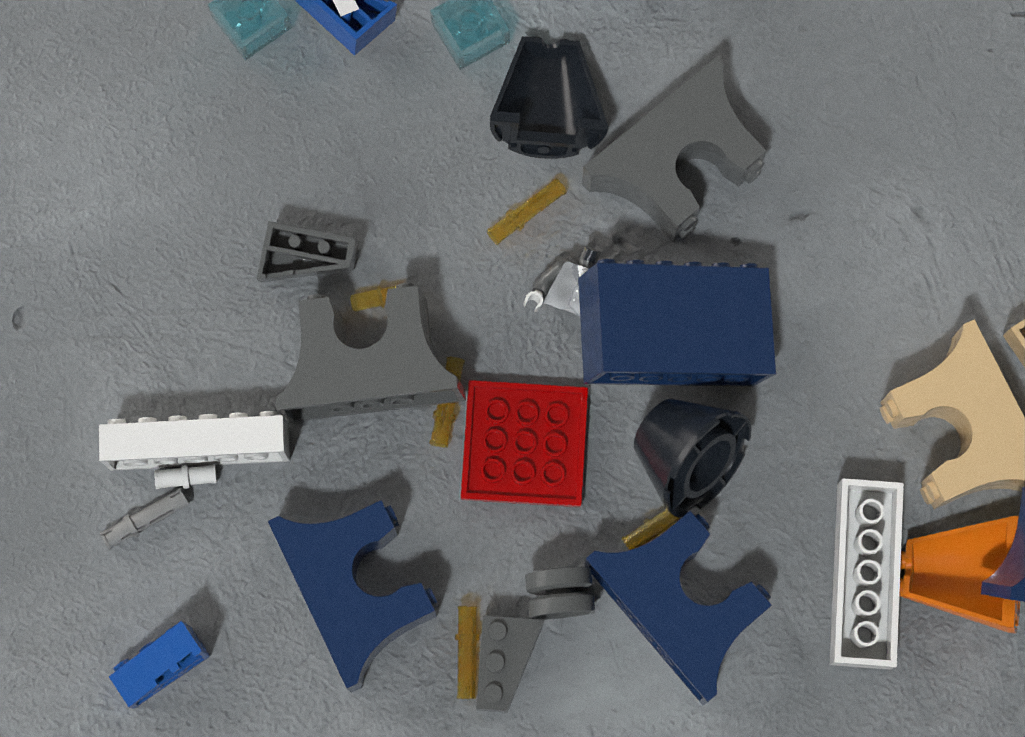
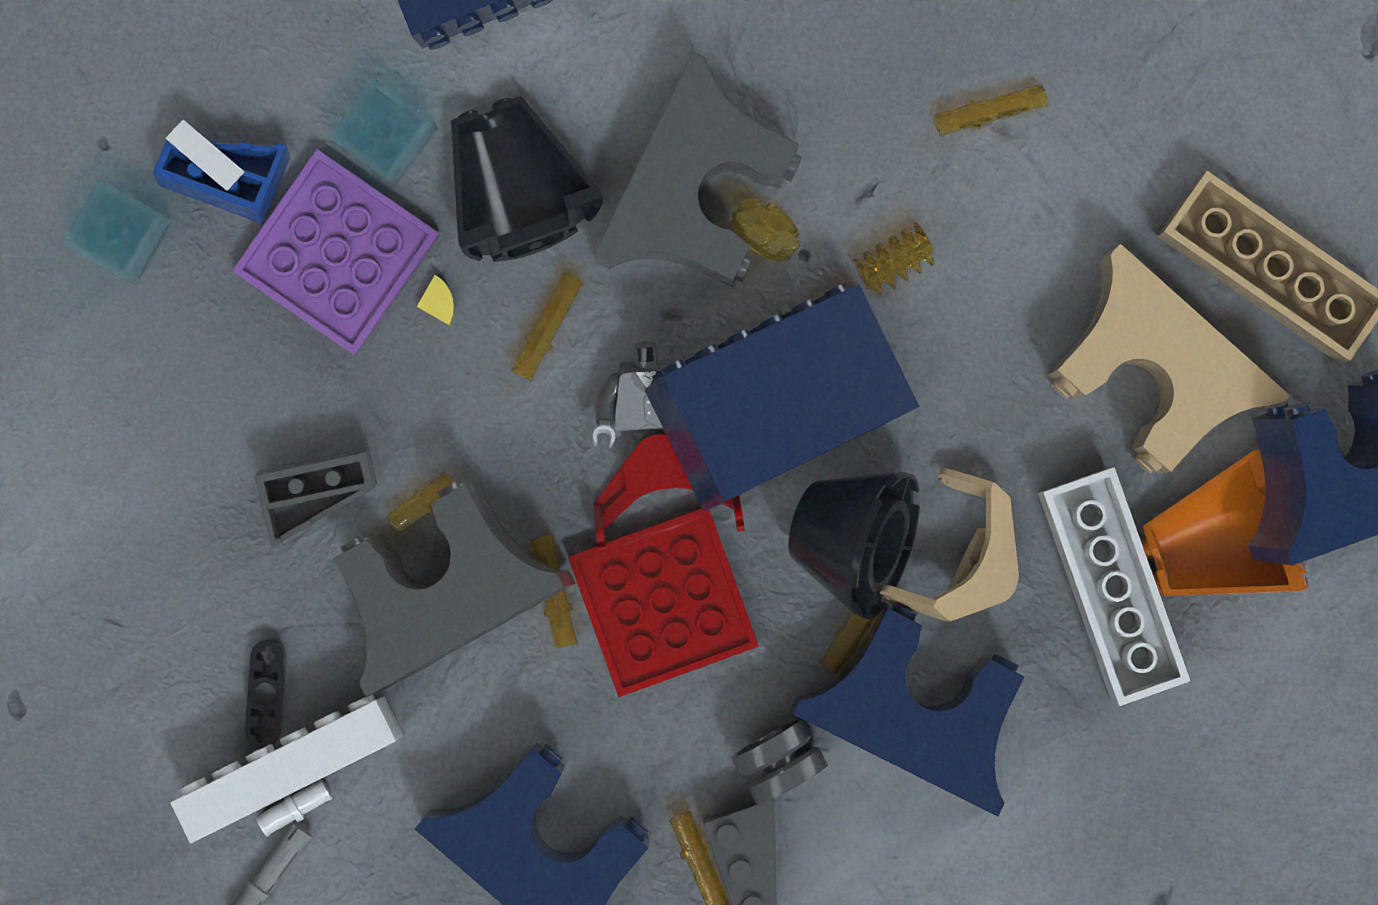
camera: 25 degrees left, 10 degrees up
(220, 370) = (272, 722): none -> black beam
(398, 96) = (336, 252): none -> medium lavender plate
(455, 161) = (438, 301): none -> light yellow tile
(554, 344) = (647, 469): none -> red piece
(715, 207) = (766, 229): none -> clear yellow tile
(779, 518) = (988, 567): none -> tan piece
(802, 269) = (896, 260): none -> clear yellow piece
(905, 192) = (996, 108): none -> clear yellow pin

